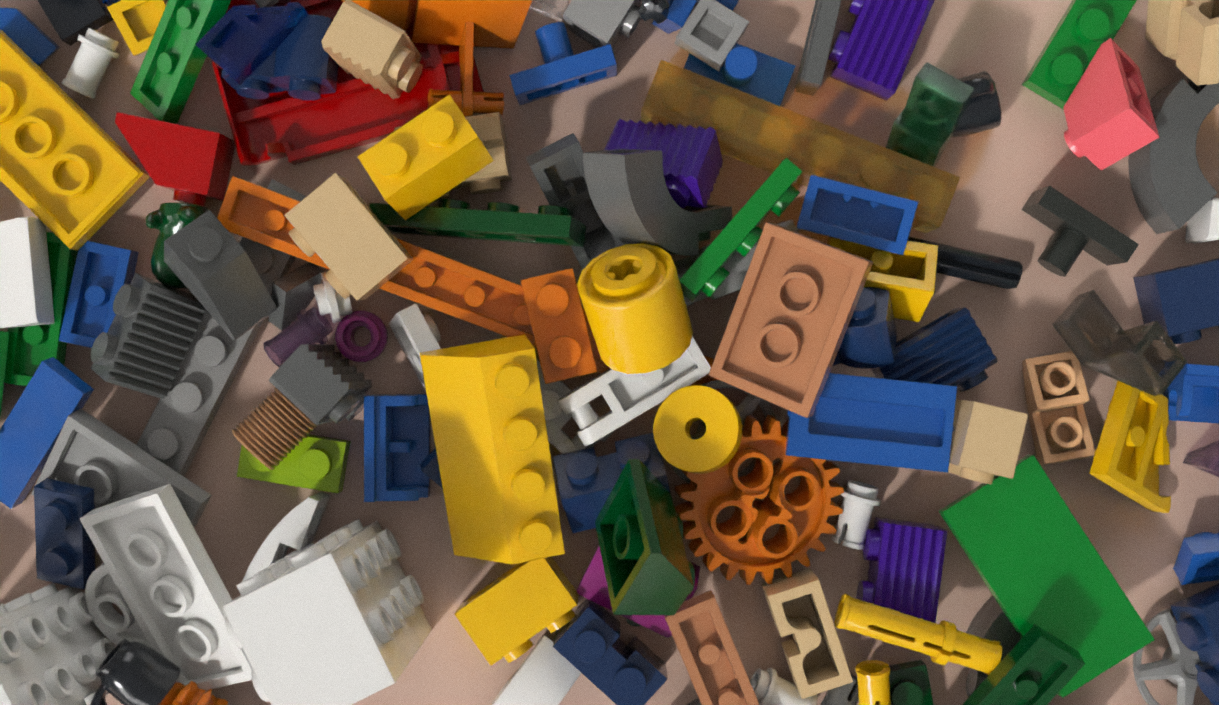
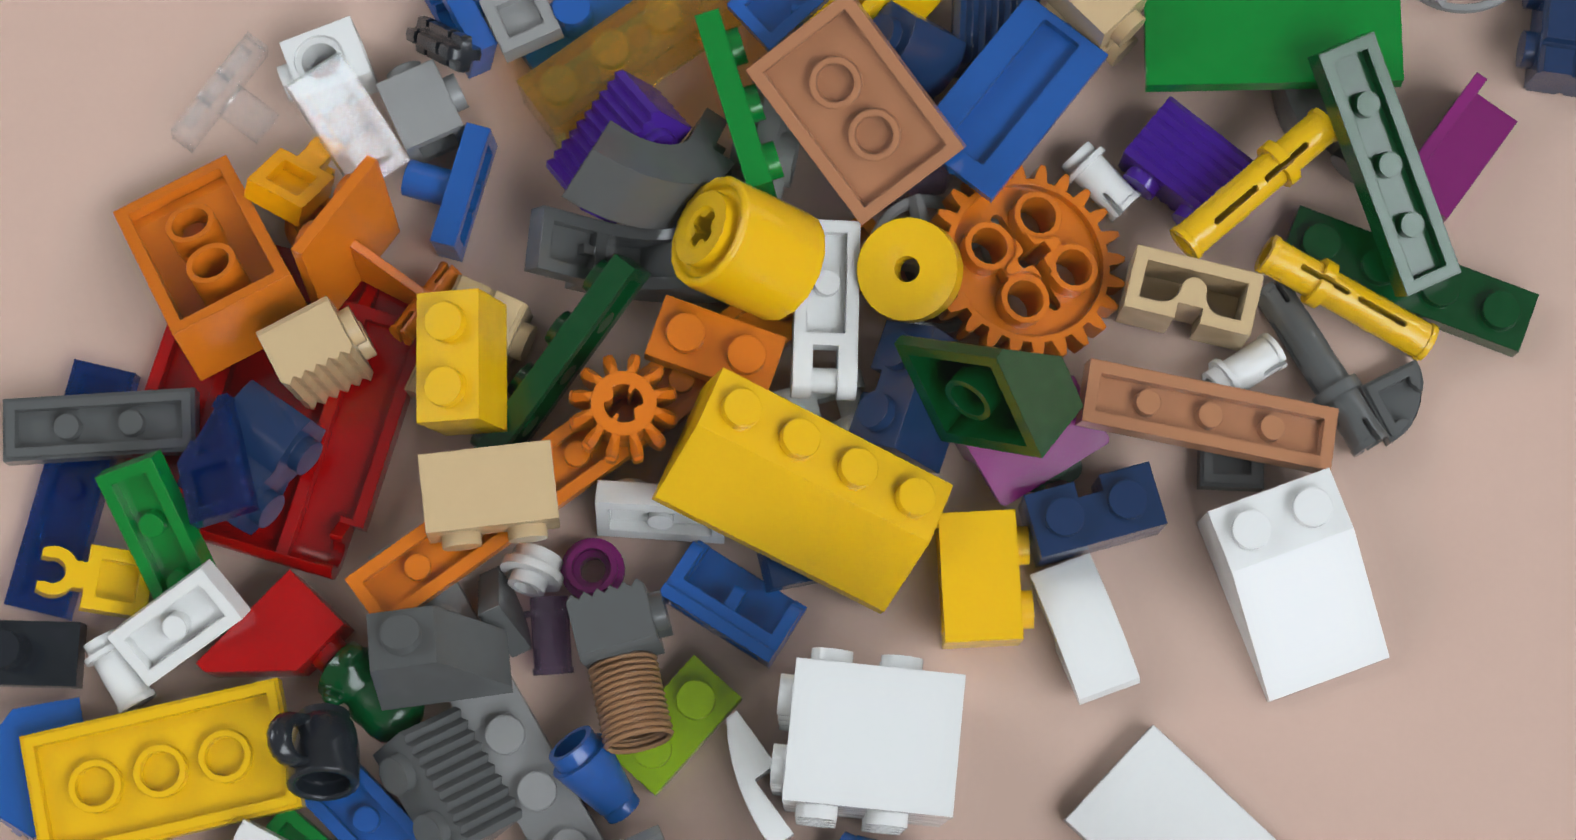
camera: 50 degrees left, 10 degrees down
(108, 238) = (318, 751): none -> black piece
(136, 82) = (179, 622): none -> white plate
(216, 419) = (593, 774): none -> blue cone
(472, 309) = (646, 415): none -> orange gear

